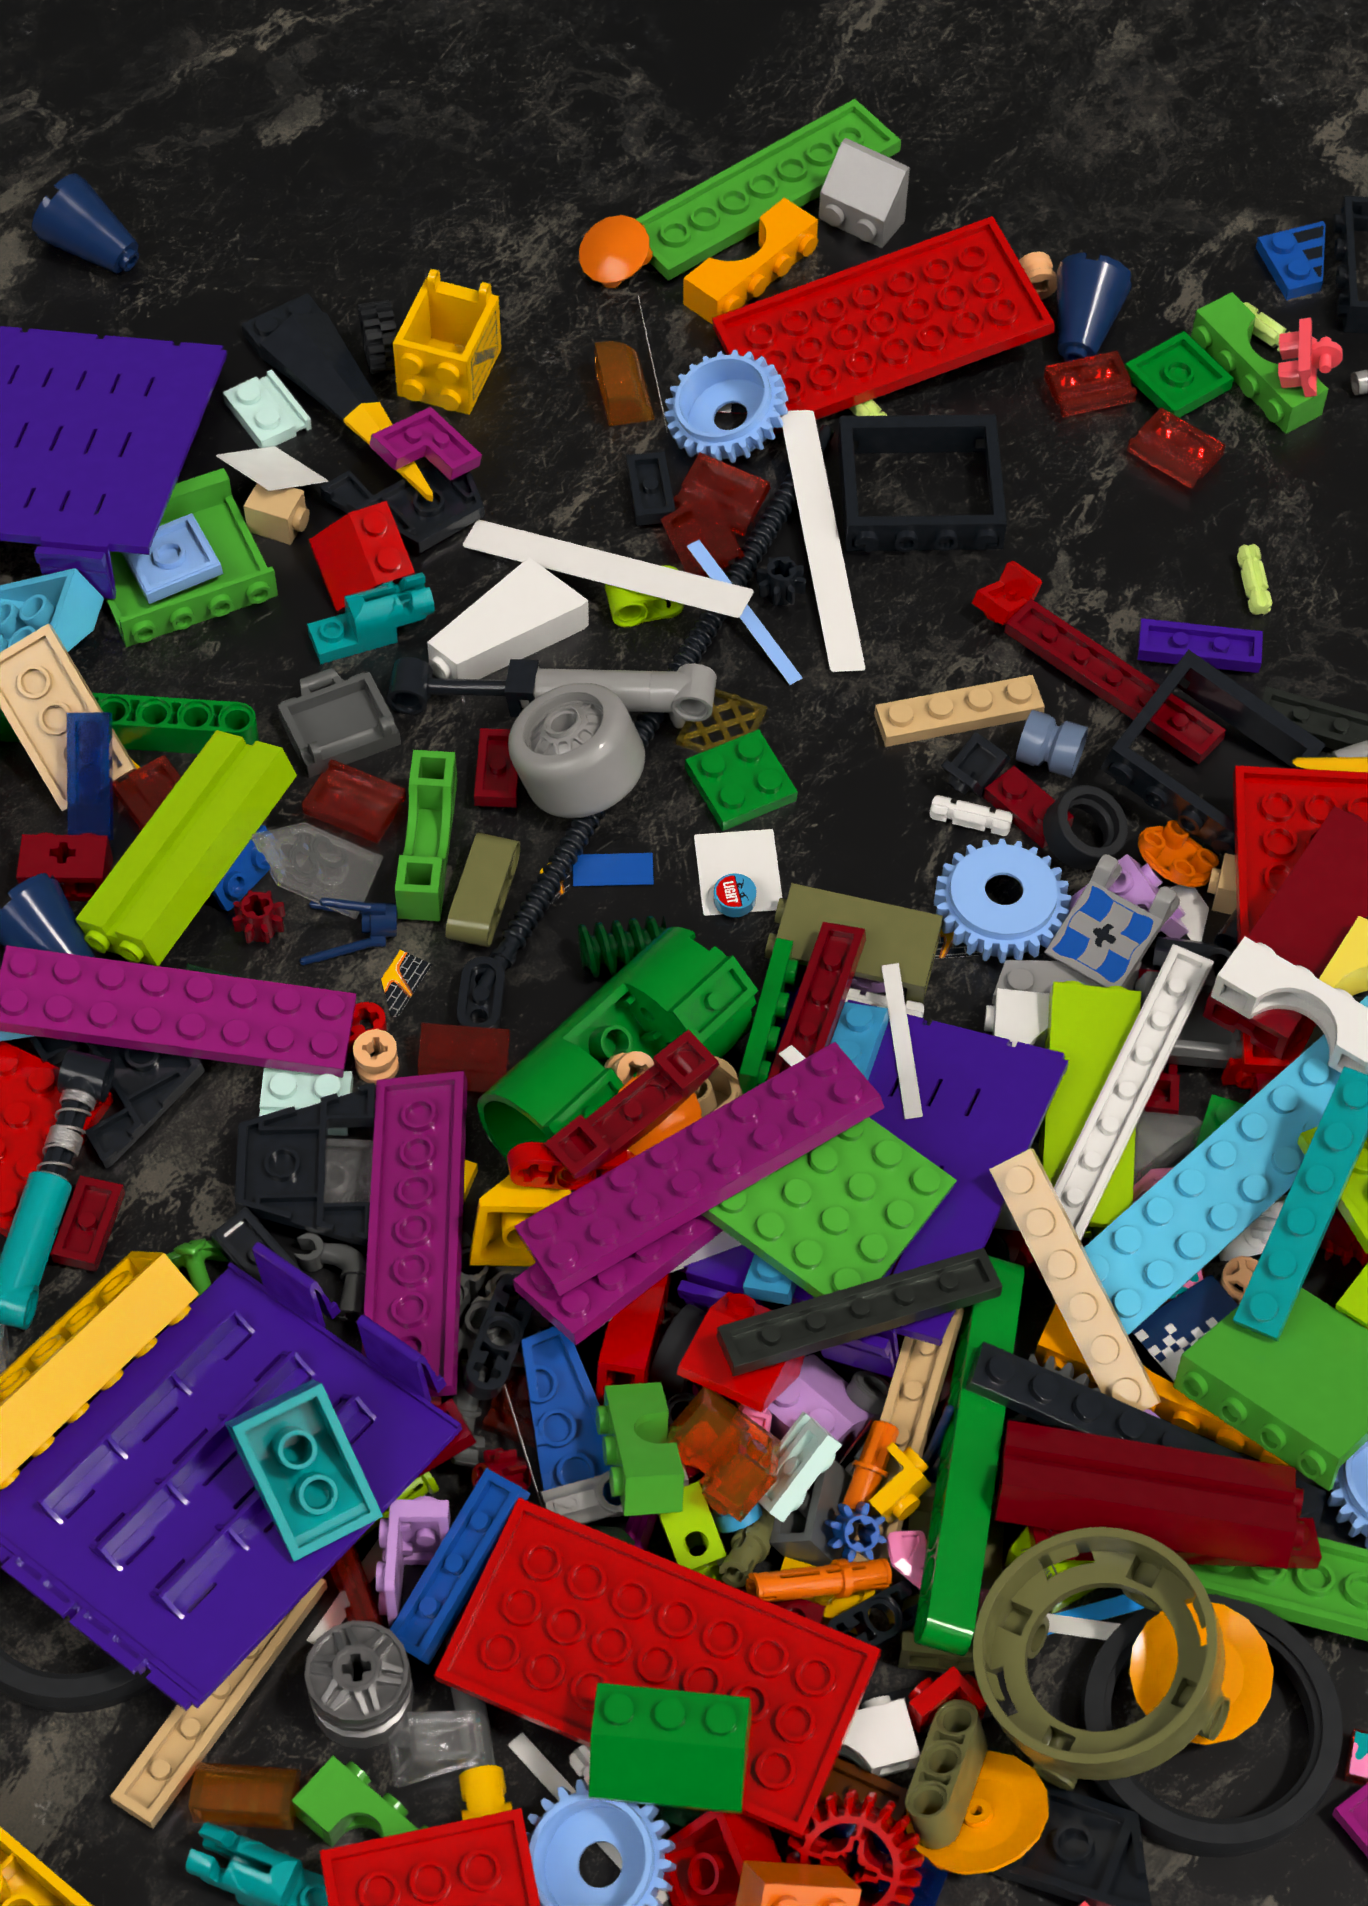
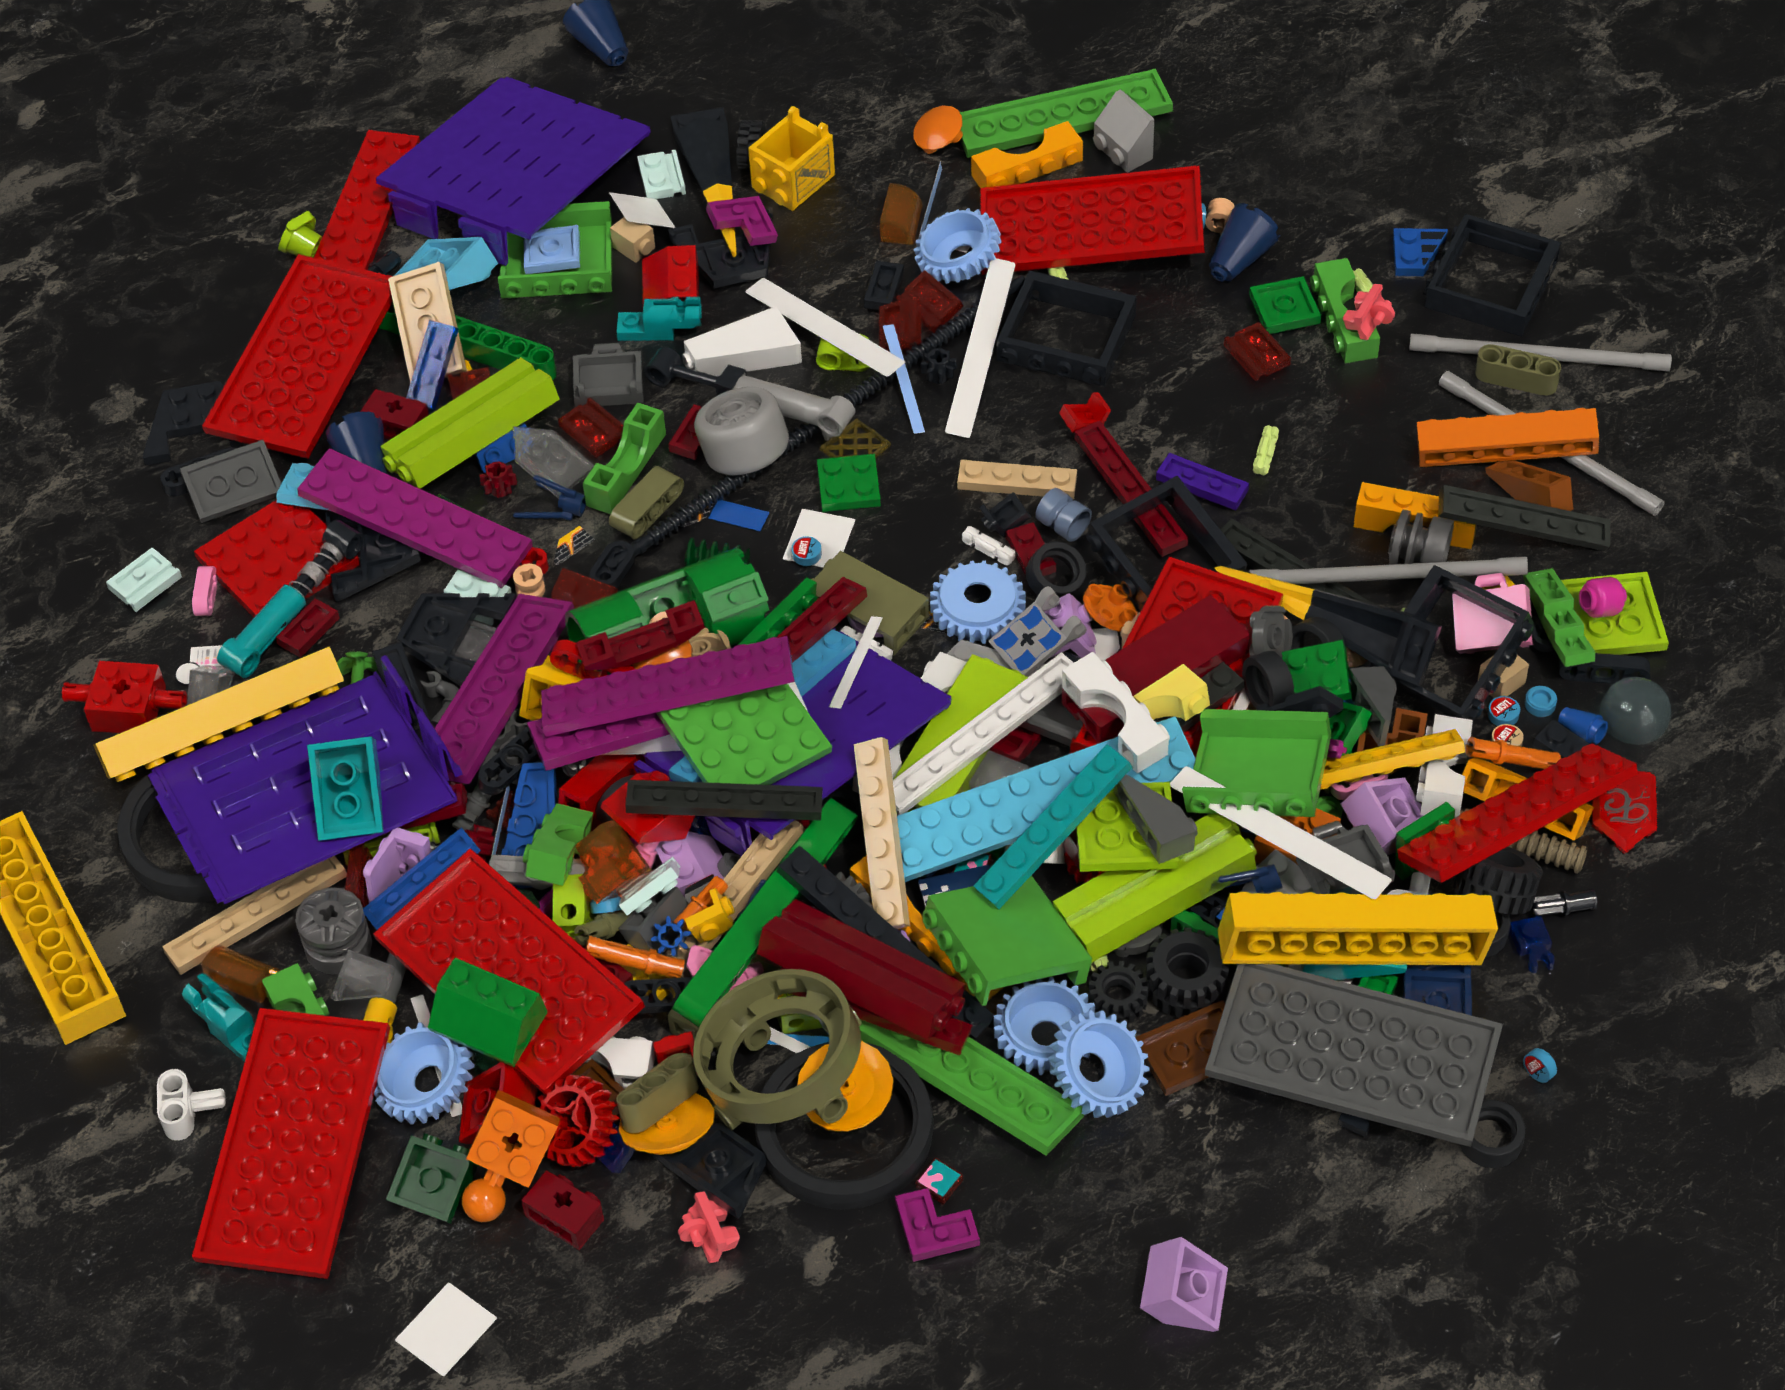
camera: 25 degrees right, 5 degrees down
(1090, 383) = (1219, 294): clear red plate -> none

